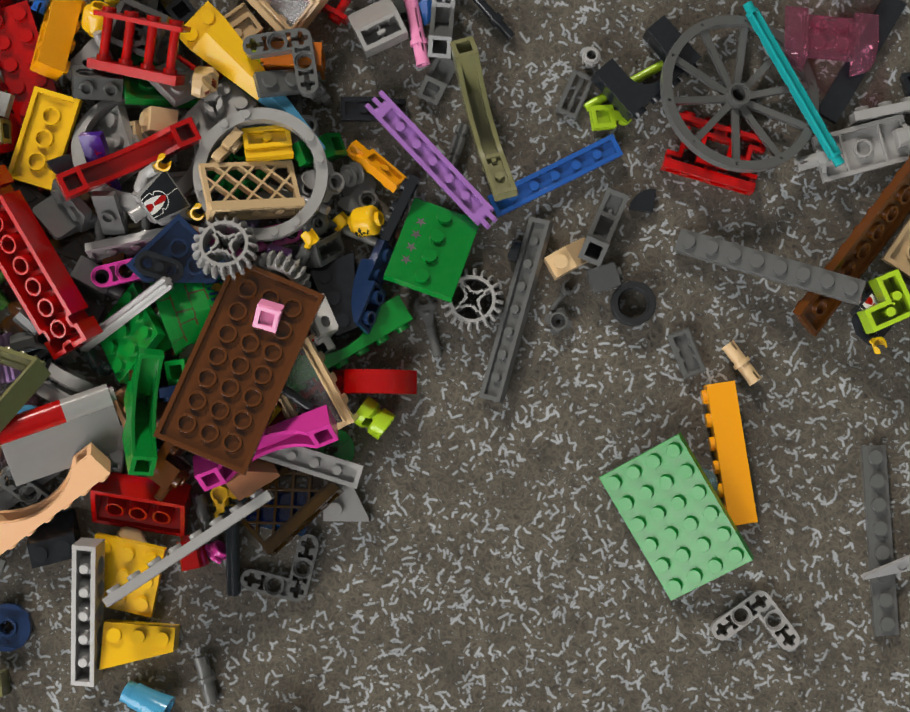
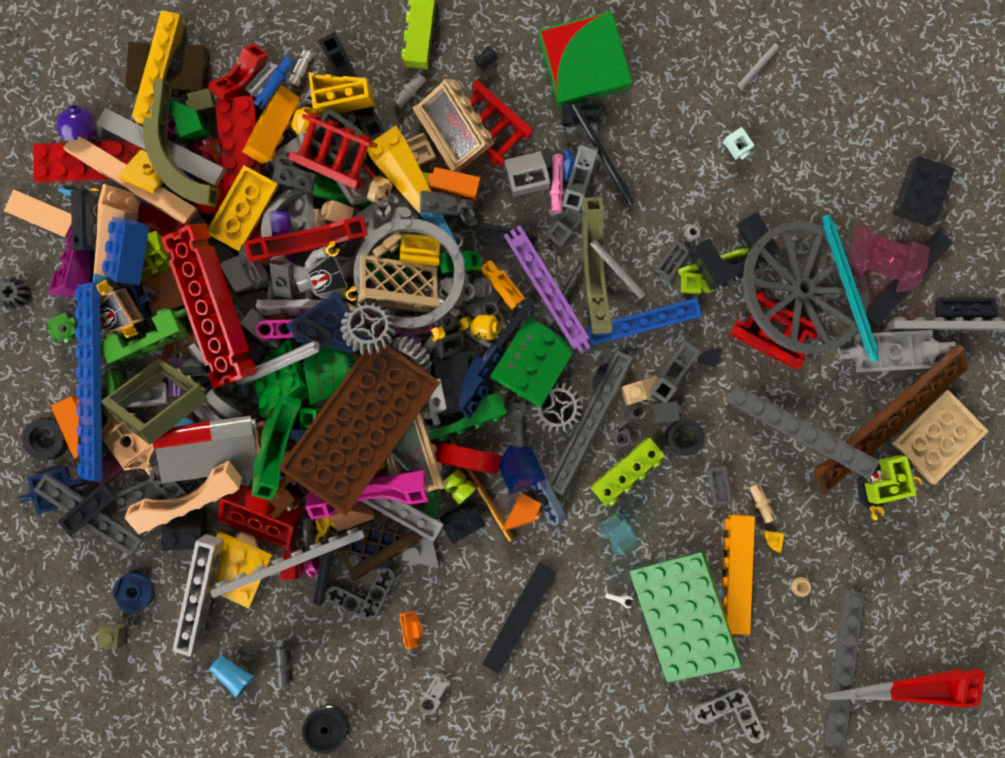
camera: 10 degrees right, 0 degrees up
(60, 164) = (250, 232): black tile -> none
(136, 640) = (232, 624): yellow wedge -> none
(268, 315) = (391, 389): bright pink slope -> none
(298, 51) = (460, 181): dark grey beam -> none
(352, 601) = (411, 629): none -> orange piece
(386, 460) = (462, 521): none -> black bracket
(395, 671) = (434, 692): none -> light grey piece
(413, 430) = (487, 500): none -> pearl gold bar
(442, 381) = (520, 468): none -> clear blue slope
(457, 434) = (523, 513): none -> orange slope
(472, 399) = (551, 509): none -> sand blue beam
(478, 561) = (519, 618): none -> black tile
(510, 118) = (618, 270): none -> light grey bar
(571, 359) = (627, 471): none -> lime brick
(577, 434) = (619, 533): none -> clear light blue brick
(596, 514) = (619, 599): none -> white hand
(765, 404) = (774, 540): none -> yellow tile
(808, 453) = (801, 587): none -> tan plate

